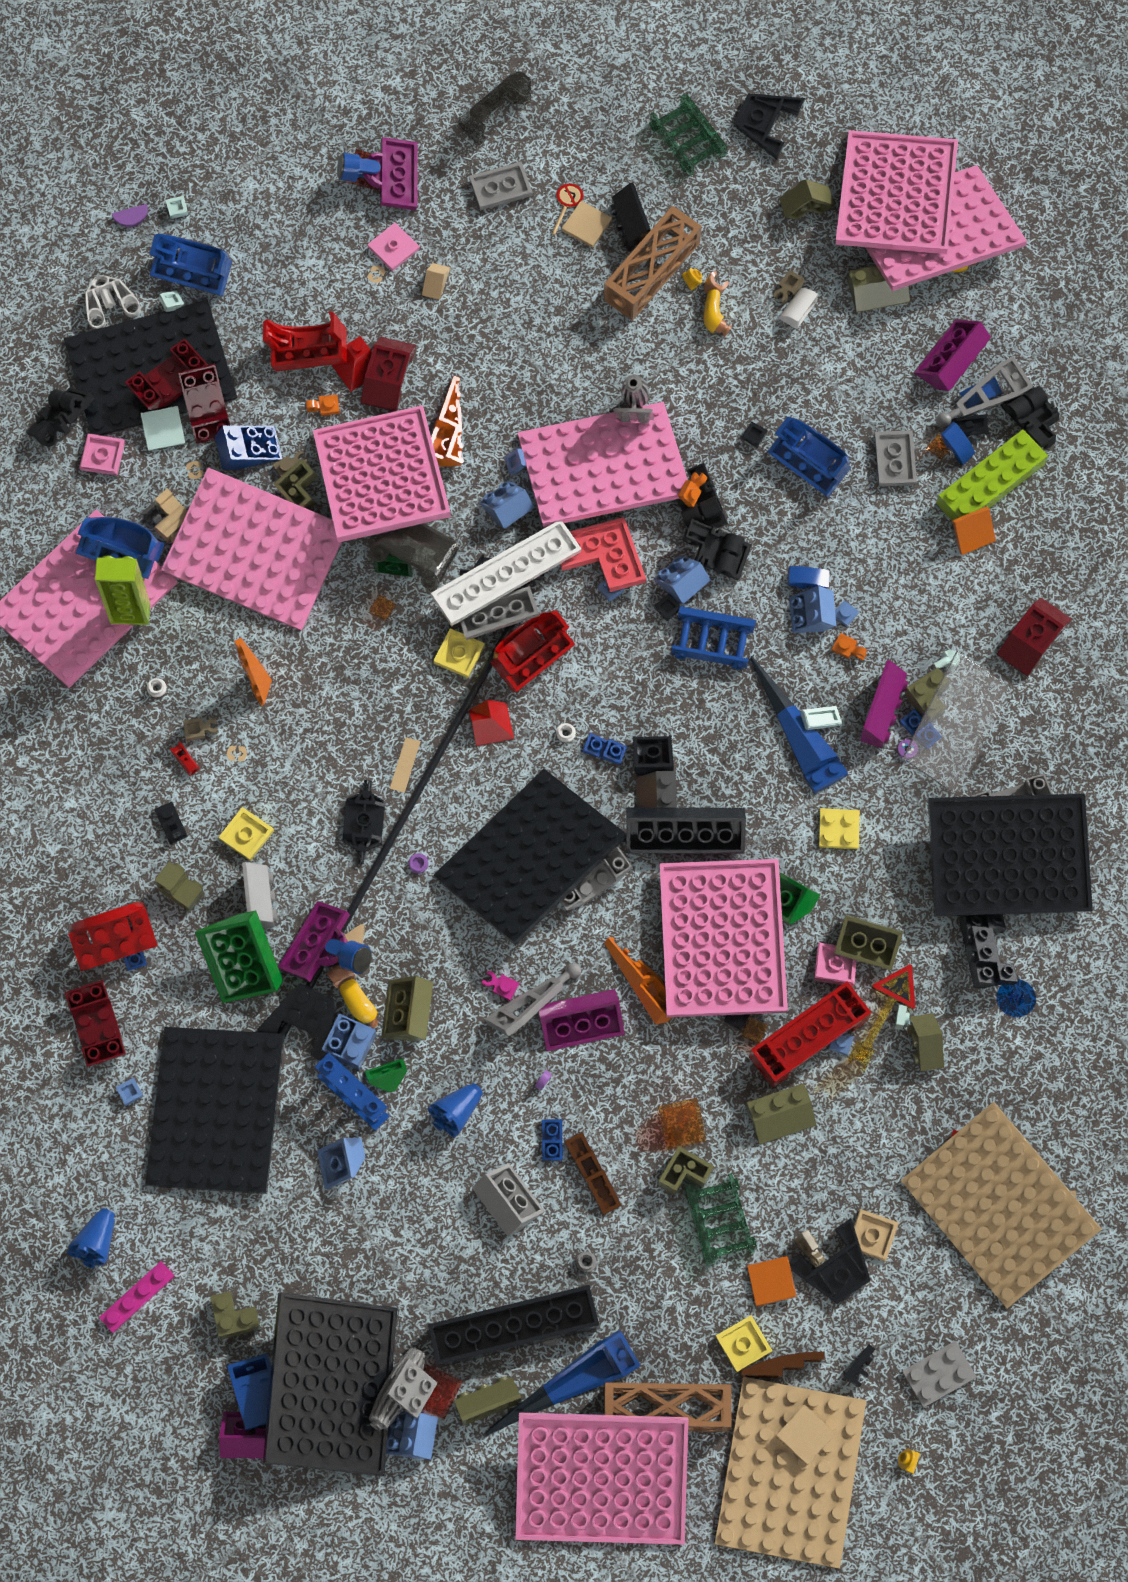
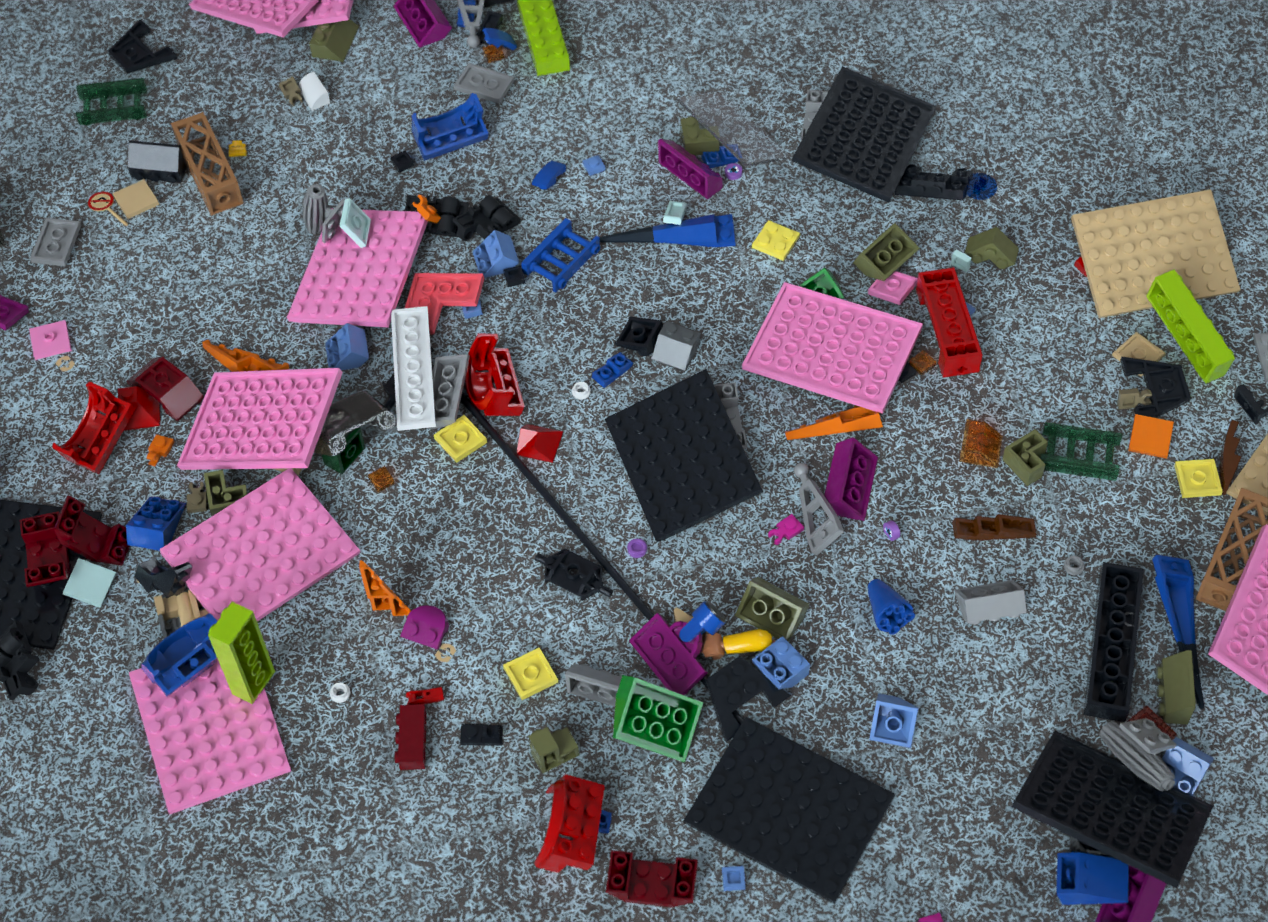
camera: 60 degrees left, 15 degrees down
(102, 454) = (78, 645): bright pink plate -> none
(139, 767) = (411, 737): none -> dark red brick
(189, 480) = (155, 576): none -> black arch
(196, 729) = (403, 674): dark tan plate -> none
(233, 1322) = (1005, 878): olive brick -> none
(251, 724) = (426, 626): none -> magenta slope
(352, 1091) = (833, 678): blue fence -> none
(387, 1076) = (825, 650): green slope -> none
(405, 764) = (537, 522): tan piece -> none
(435, 281) = (106, 321): tan slope -> none
(515, 461) = (312, 328): medium blue plate -> none
(552, 1140) = (953, 549): blue slope -> none
(637, 434) = (355, 222): none -> light aqua tile
(685, 830) = (723, 332): black brick -> none
(711, 315) = (279, 147): piece -> none
(781, 1113) = (1005, 372): olive slope -> none
(806, 197) = (226, 49): olive brick -> none
(813, 610) = (579, 183): medium blue slope -> none
(847, 646) = (624, 175): orange plate -> none
(898, 988) = (934, 254): clear yellow piece -> none
(917, 1270) = (1190, 326): none -> lime brick
(945, 659) = (673, 116): light aqua plate -> none
(974, 530) = (578, 56): orange tile -> none
(1033, 636) = (691, 56): dark red slope -> none

